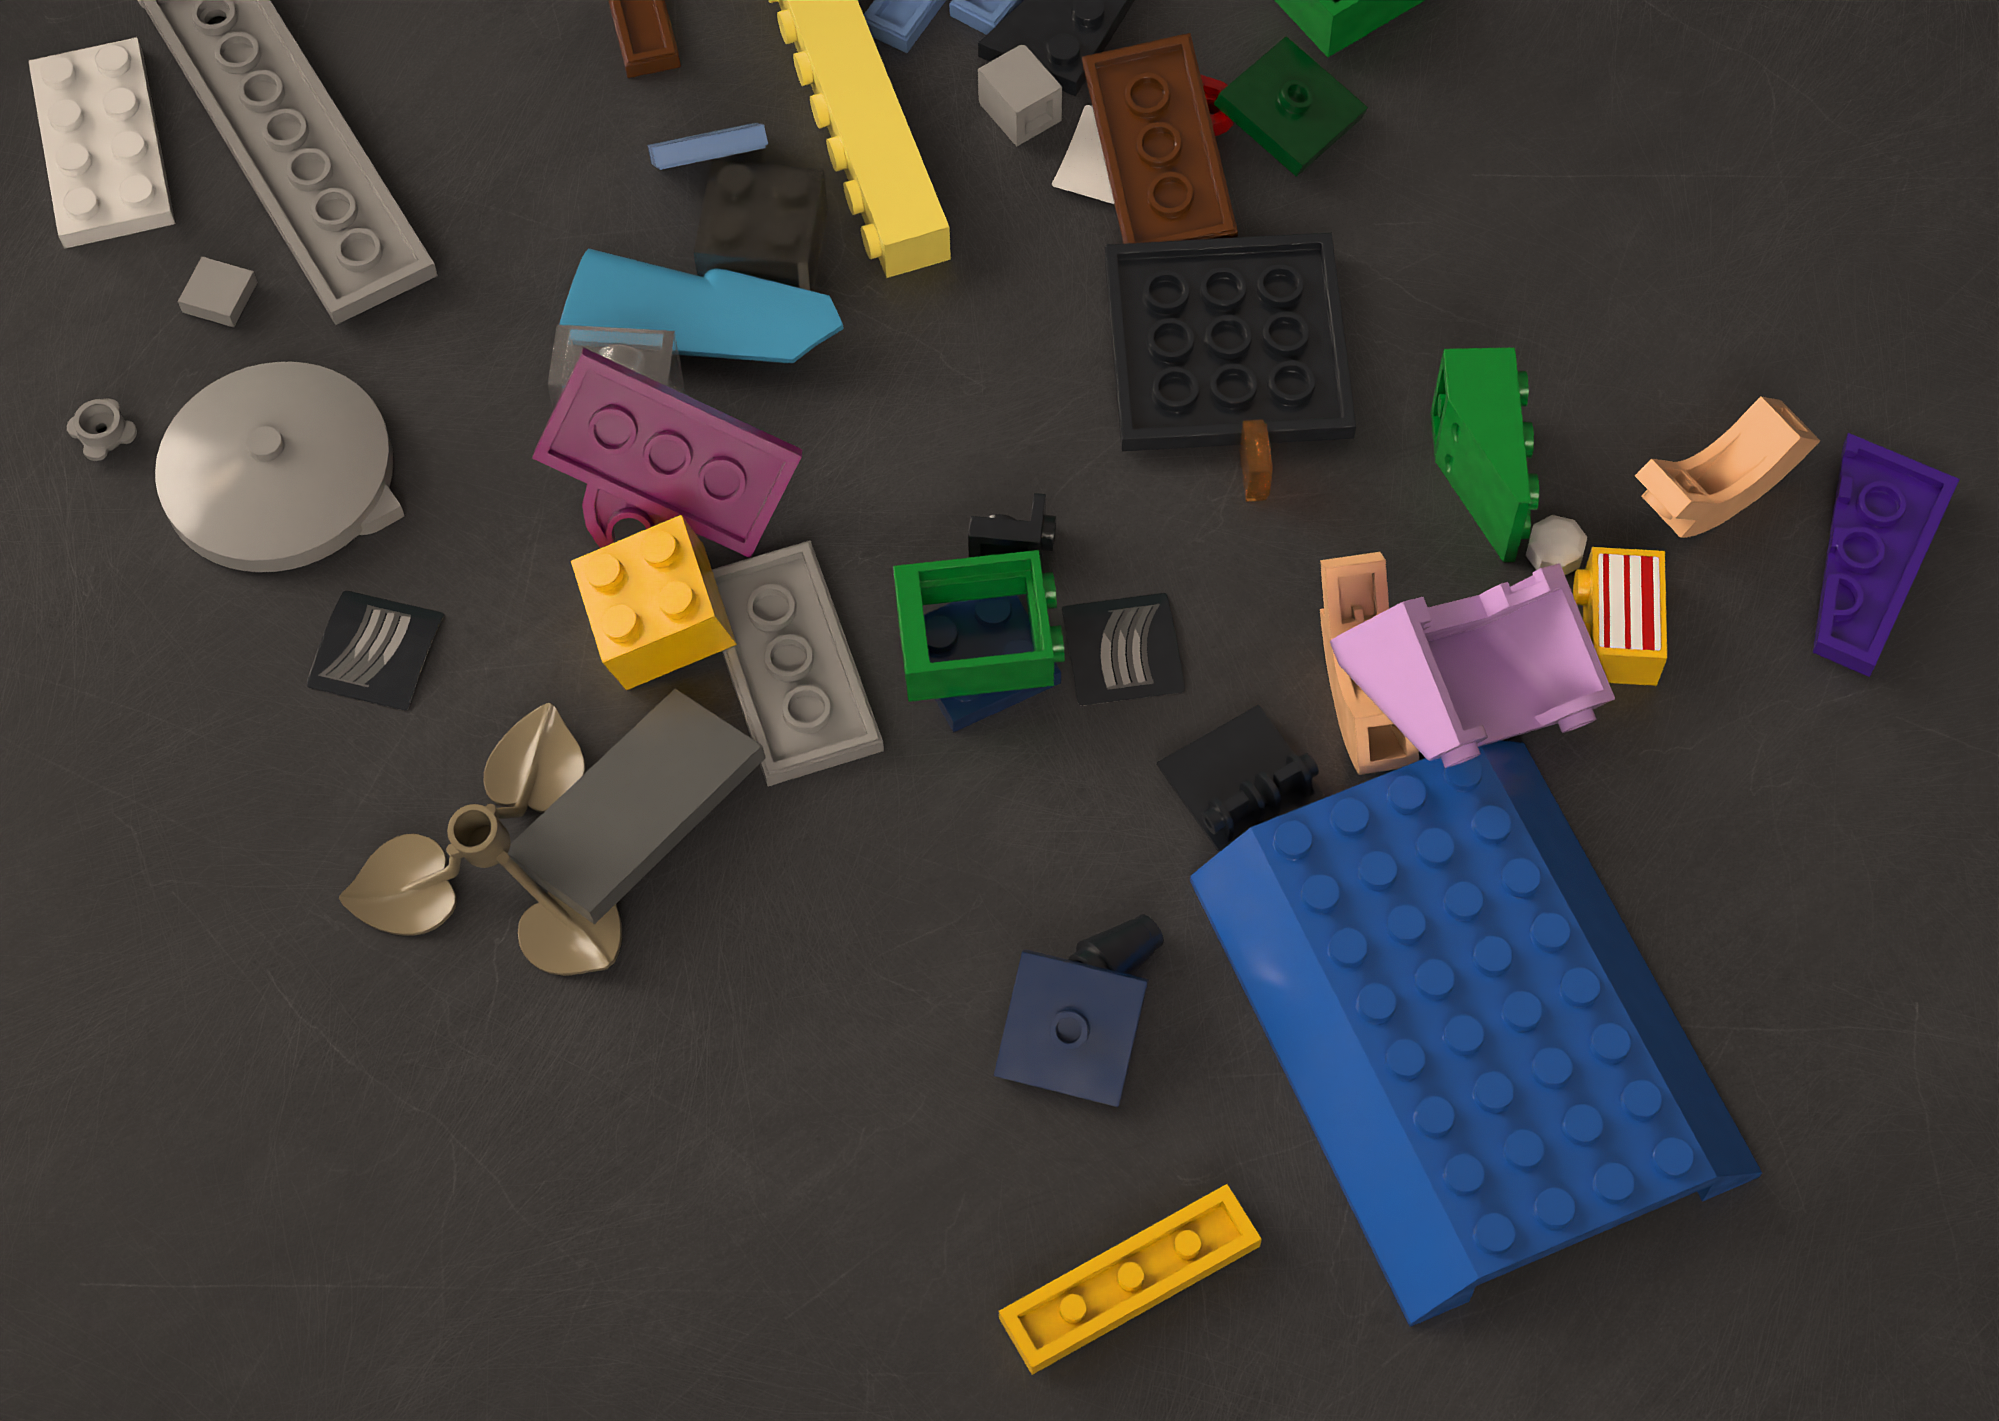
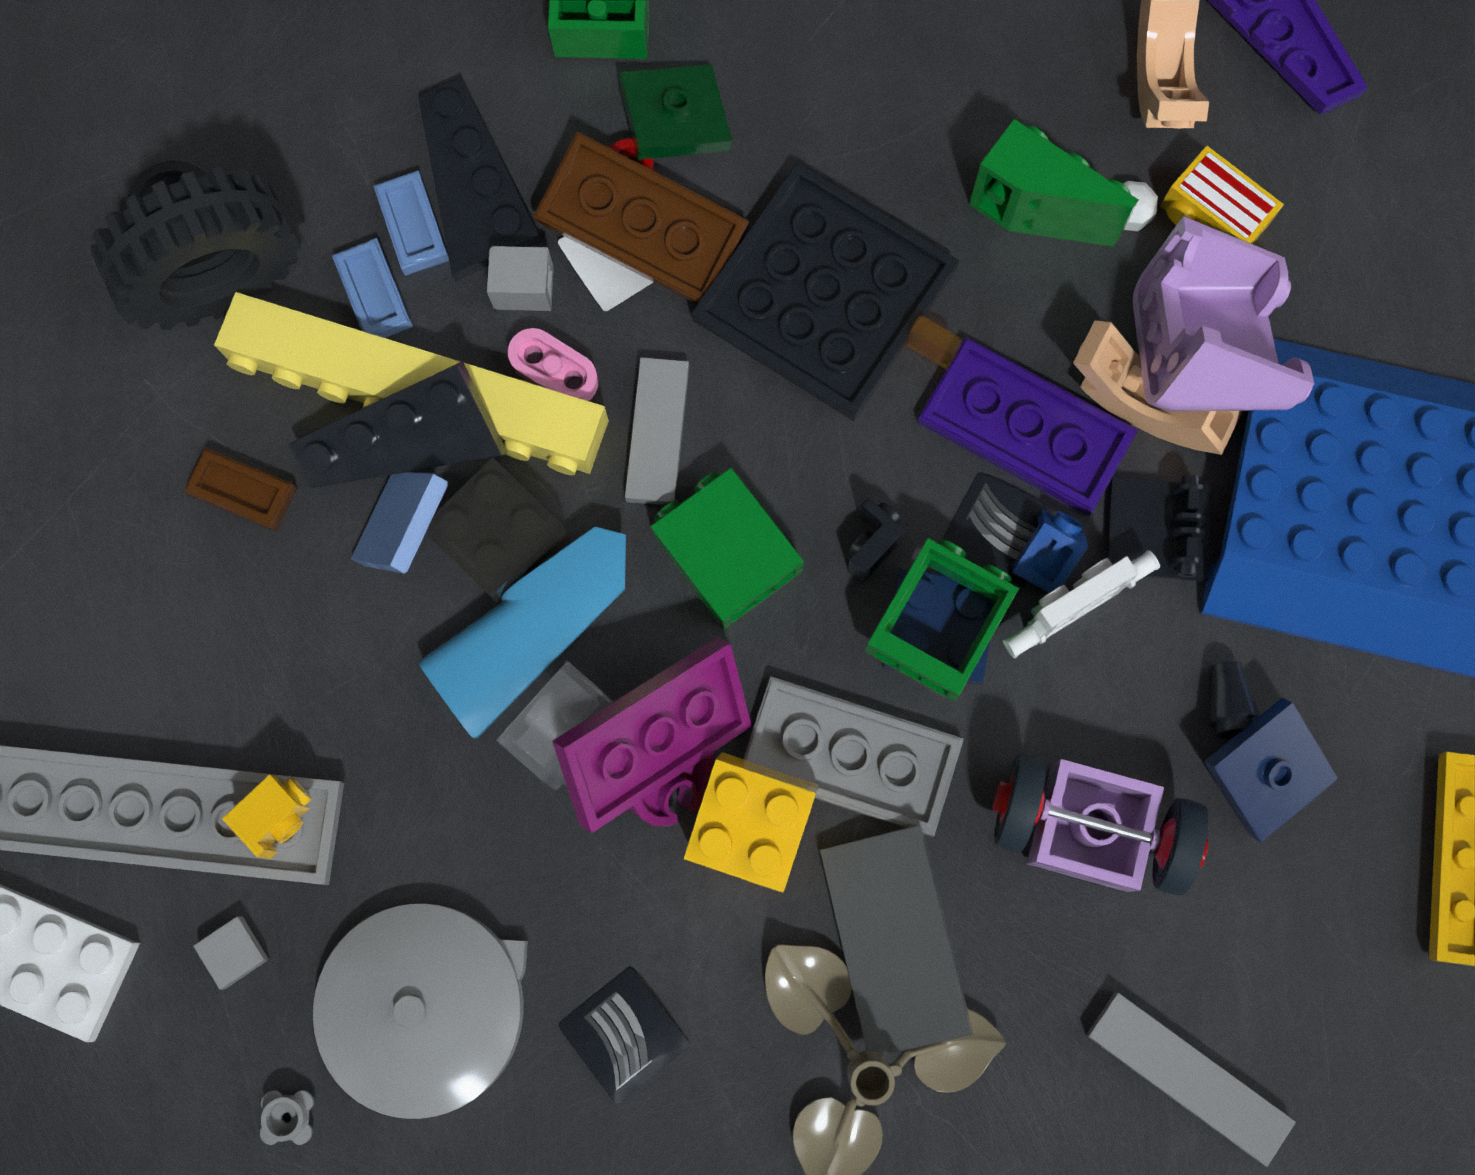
camera: 50 degrees left, 15 degrees up
(358, 219) = (269, 815): none -> yellow brick
(702, 1166) = (1191, 1079): none -> light grey tile
(798, 95) = (411, 430): none -> black wing
(880, 888) = (1099, 826): none -> brick
(902, 422) = (726, 547): none -> green brick
(959, 179) = (556, 366): none -> bright pink plate
(971, 299) = (657, 431): none -> light grey tile
(1094, 735) = (1093, 589): none -> white plate
(1133, 693) = (1051, 551): none -> blue bracket
(1247, 602) = (1027, 426): none -> dark purple tile

